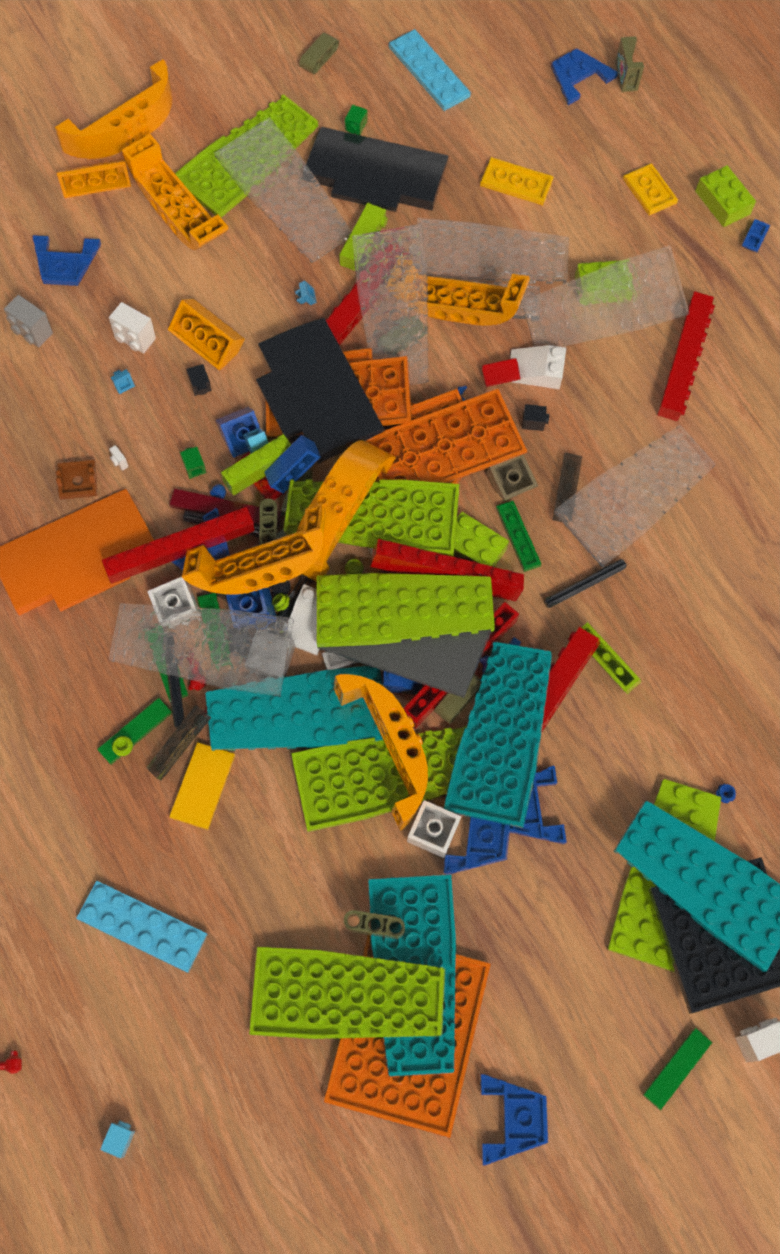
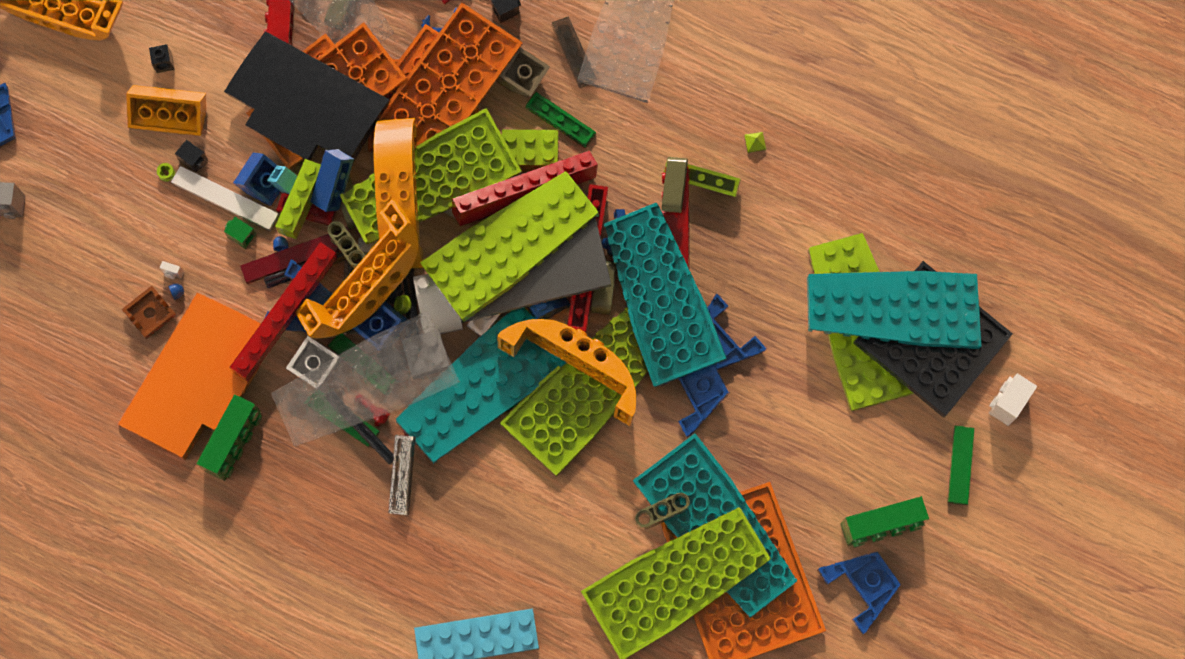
camera: 30 degrees left, 5 degrees up
(62, 619) = (229, 438): none -> green brick
(110, 476) = (176, 290): none -> blue hinge
(122, 381) = (123, 199): dark azure tile -> none
(122, 746) = (357, 508): lime plate -> none
(132, 328) = (98, 146): white brick -> none
(137, 728) = (356, 490): green tile -> none
(175, 383) = (163, 166): none -> lime bush
(201, 428) = (225, 198): none -> white tile
(202, 786) = (445, 497): yellow tile -> none
(230, 292) = (161, 58): none -> black brick
(307, 293) = (231, 16): dark azure tile -> none
(354, 567) = (442, 235): lime plate -> none
(433, 829) = (656, 407): white brick -> none
(572, 1073) = (884, 521): none -> green brick
(577, 646) = (674, 184): none -> olive beam
(585, 583) = (642, 125): black axle -> none
(675, 658) = (755, 142): none -> lime slope
(726, 788) = (864, 222): blue plate -> none

